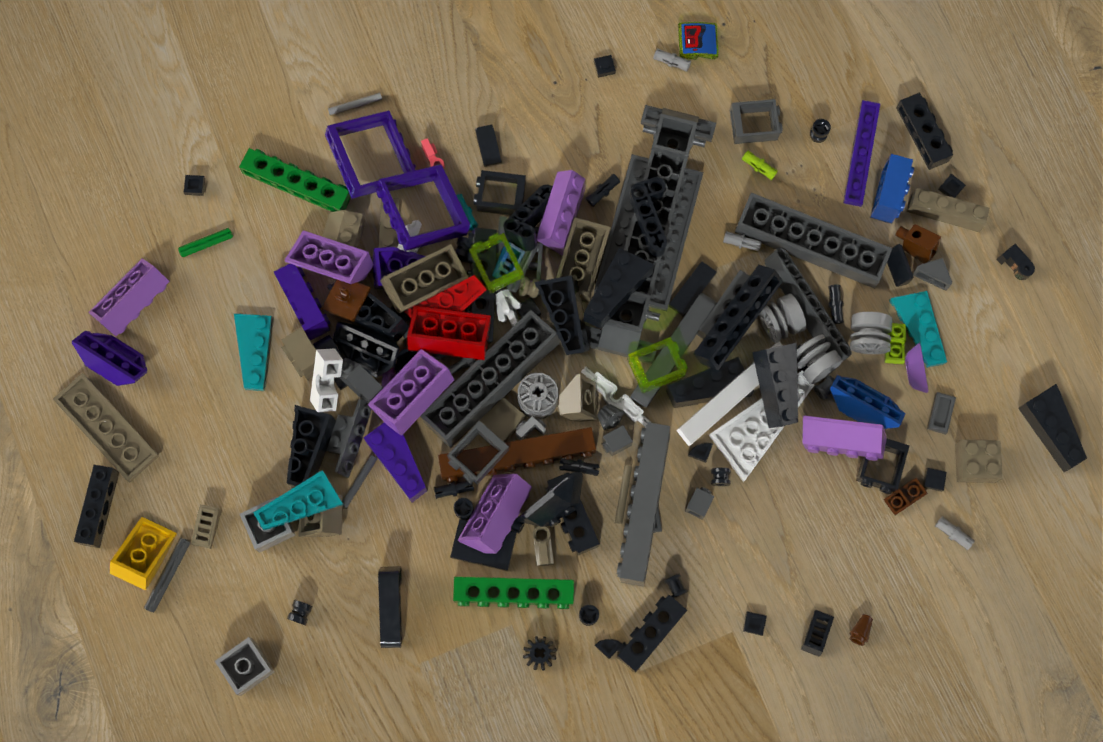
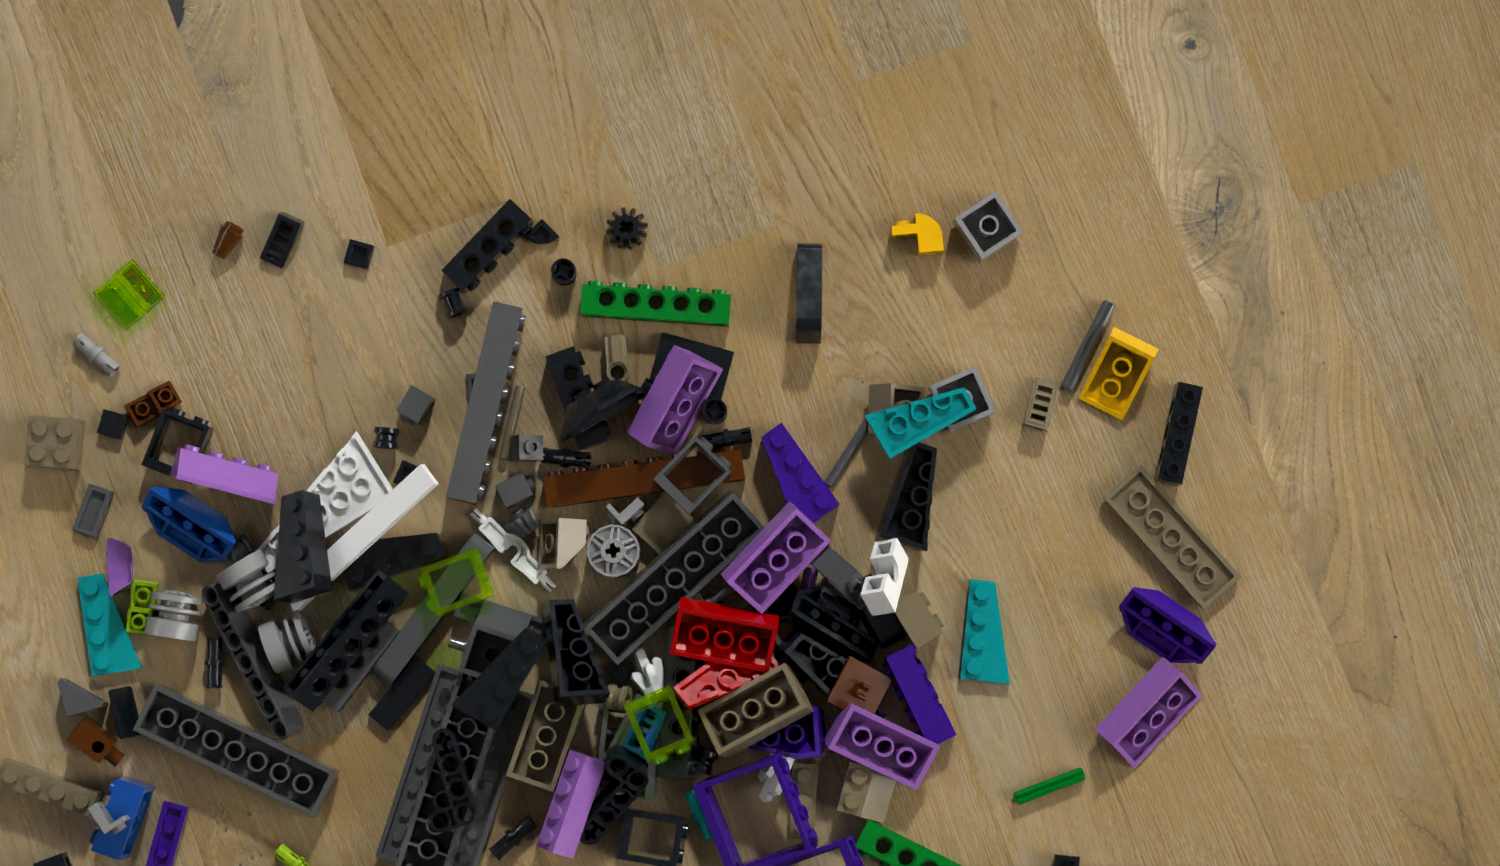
camera: 175 degrees left, 10 degrees up
(295, 661) = (927, 234): none -> yellow brick
(299, 612) = (921, 290): black wheel -> none
(348, 437) = (861, 511): dark grey bracket -> none
(610, 472) = (526, 448): none -> dark grey brick
(741, 241) = (330, 756): light grey axle -> none
(905, 177) = (101, 818): none -> light grey bracket
(935, 582) = (129, 295): none -> clear neon green slope
(952, 186) = (39, 822): black plate -> none

